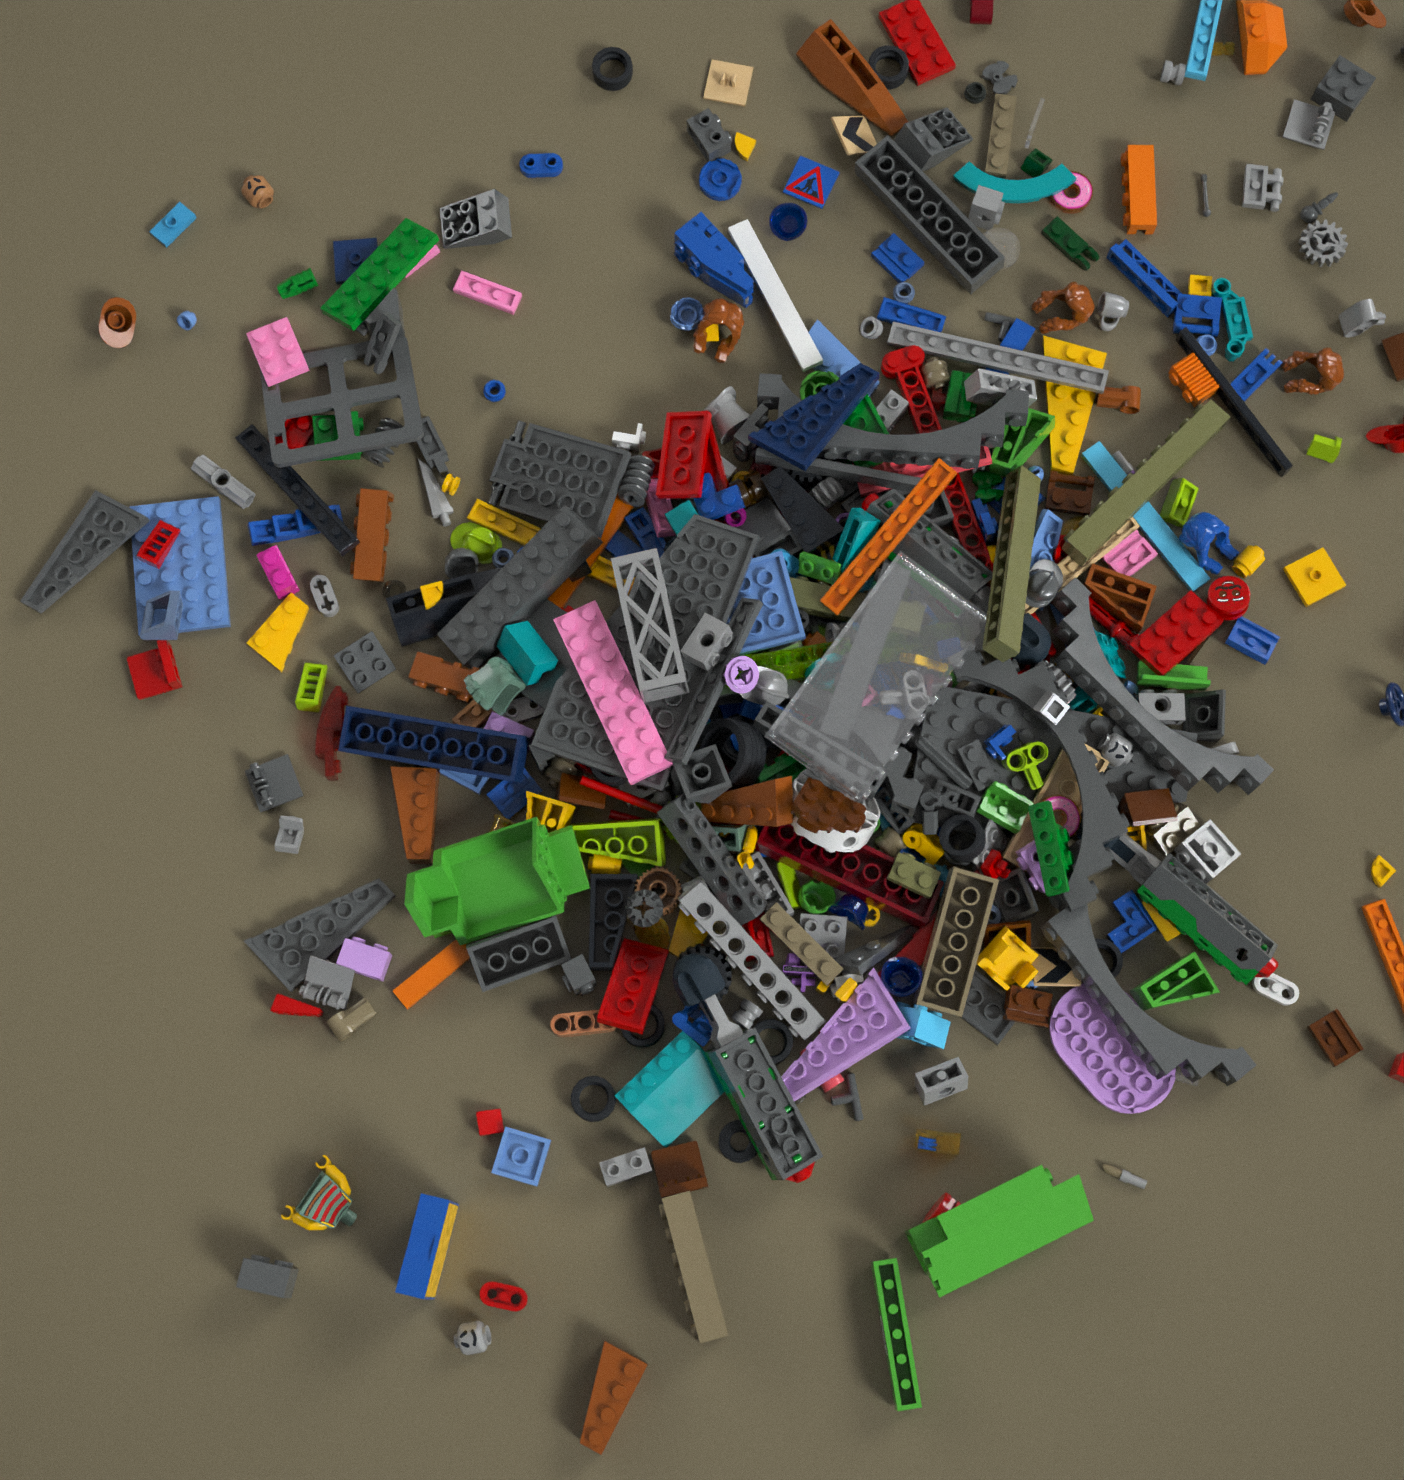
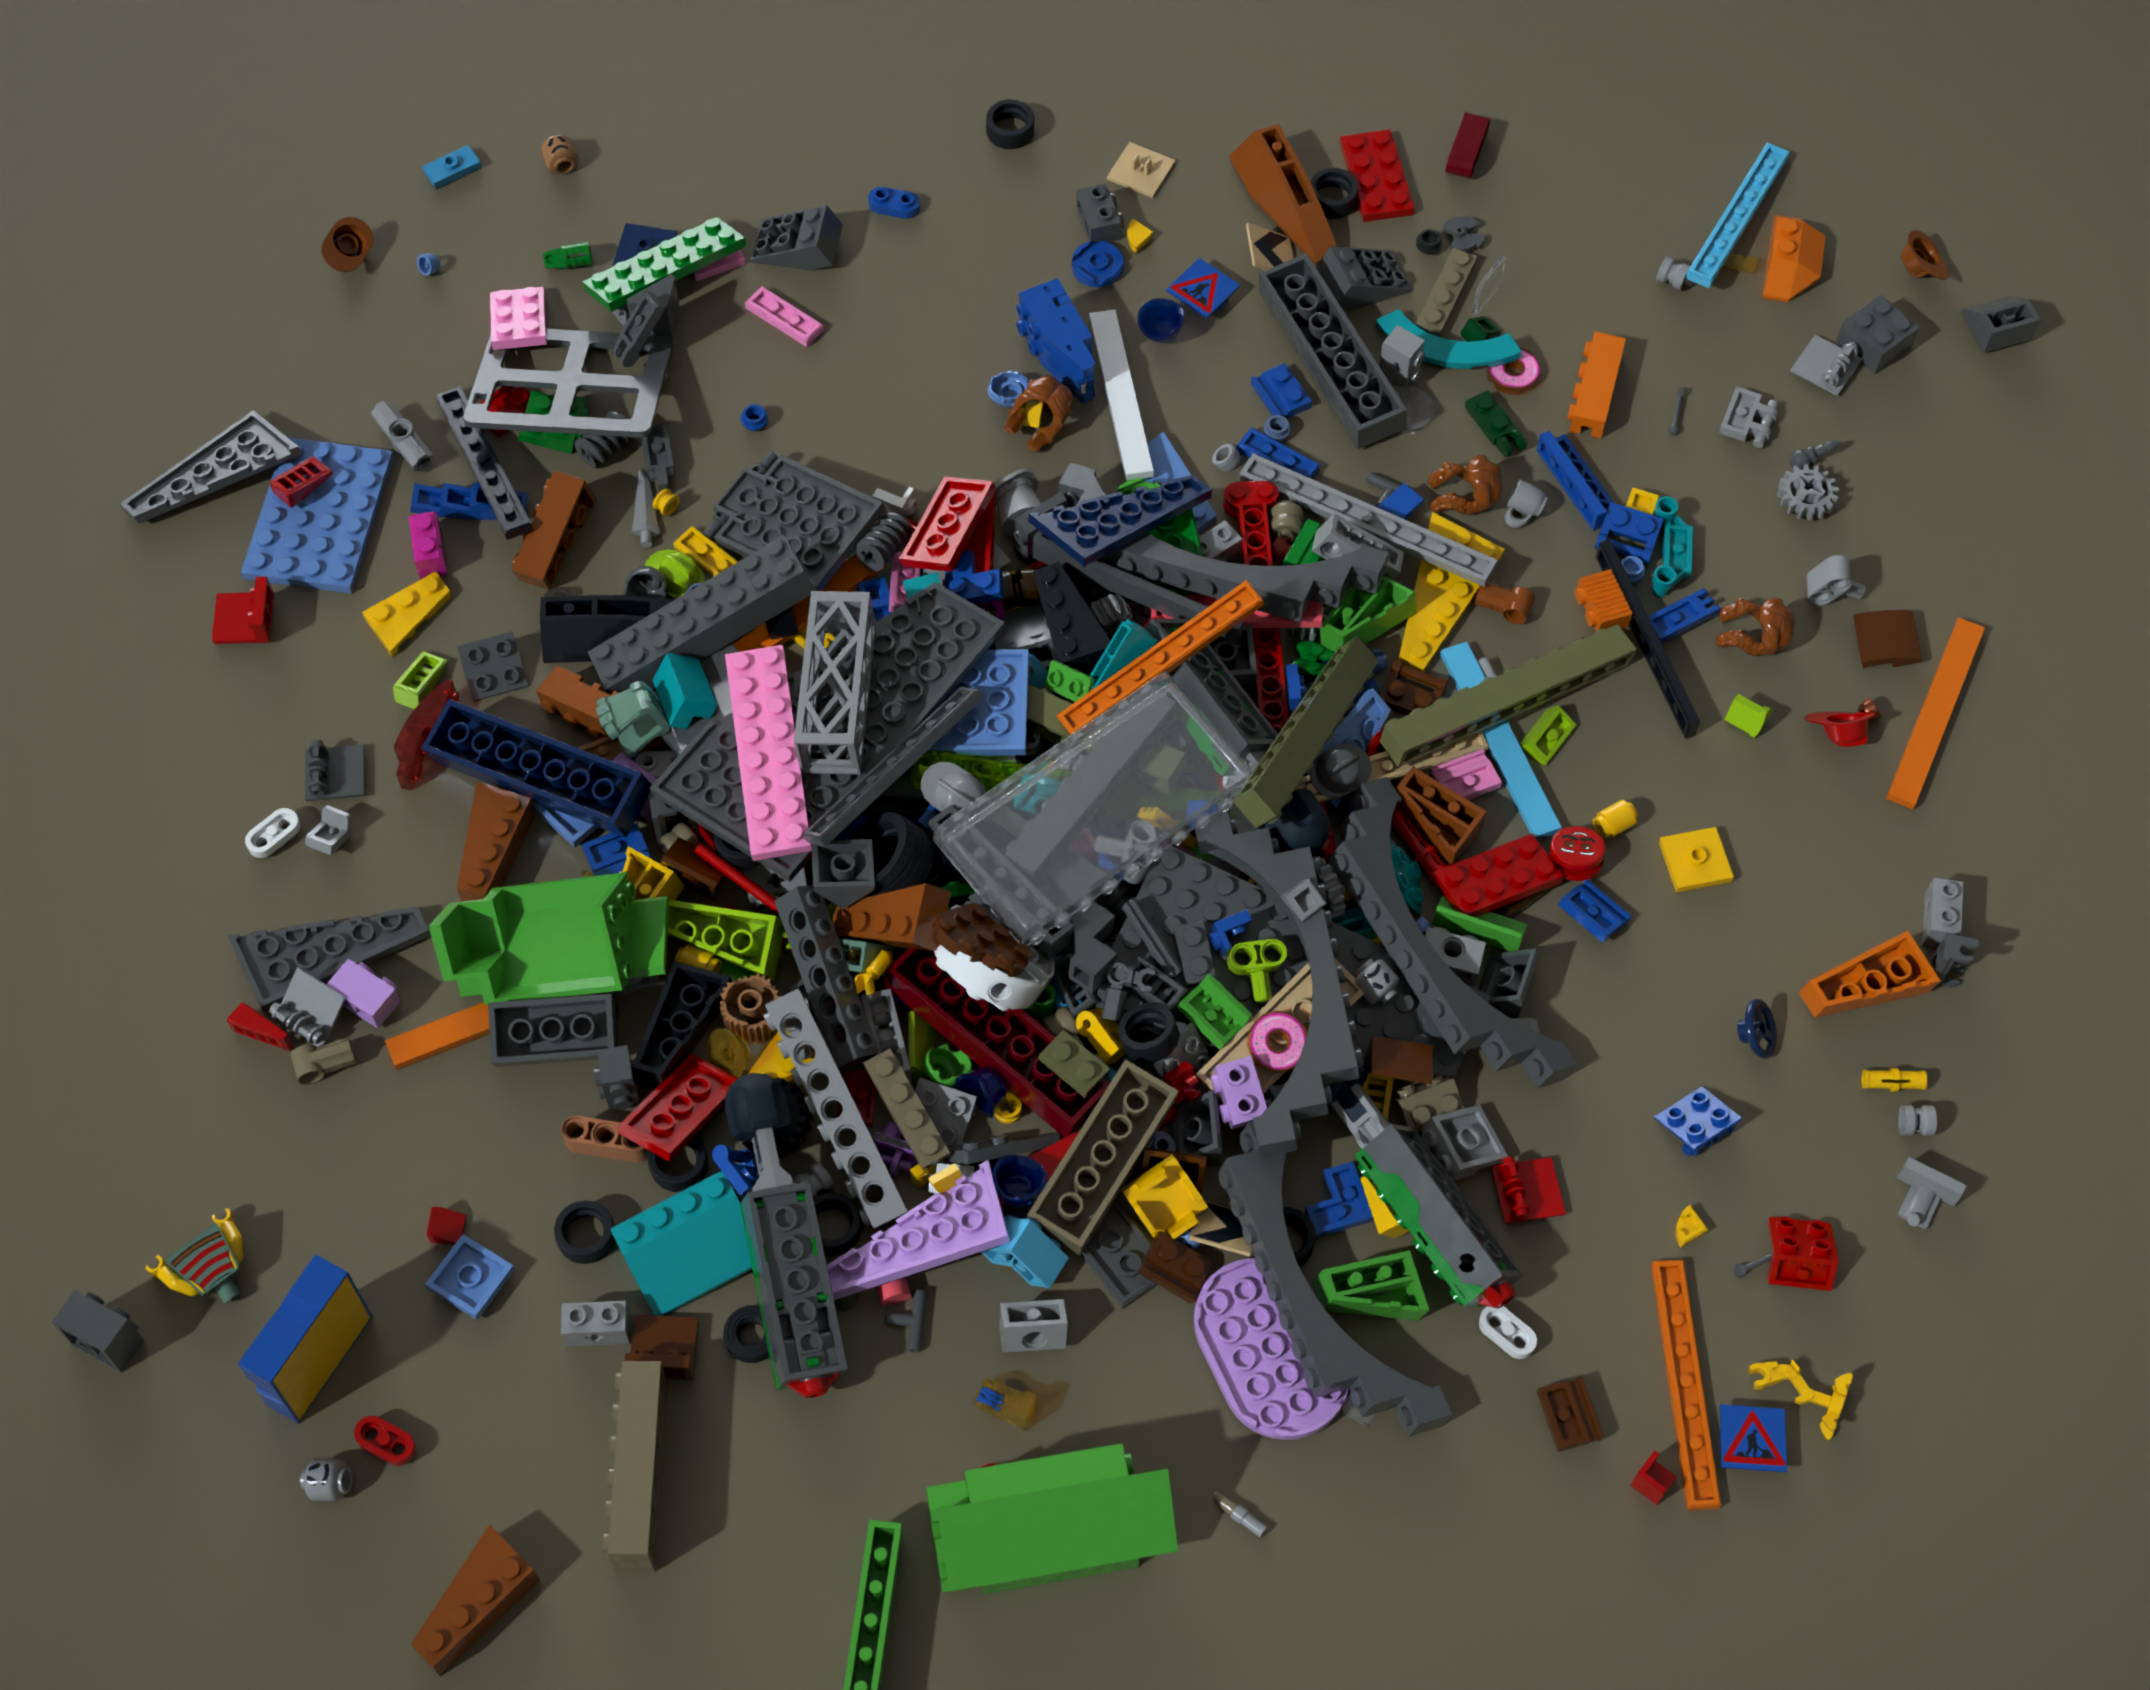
camera: 15 degrees right, 15 degrees down
(170, 628) = (287, 550): sand blue tile -> none
(244, 846) = (270, 832): none -> white plate
(319, 598) = (478, 585): light grey beam -> none
(431, 593) = (596, 603): yellow tile -> none
(651, 916) = (729, 1024): dark grey gear -> none
(707, 629) = (898, 718): light grey brick -> none
(749, 677) = (934, 752): lavender gear -> none
(1051, 848) = (1257, 1067): green bracket -> none
(1200, 532) = (1557, 767): blue hair -> none
(1261, 875) = (1527, 1189): none -> red hinge
(1368, 786) = (1698, 1120): none -> blue hinge

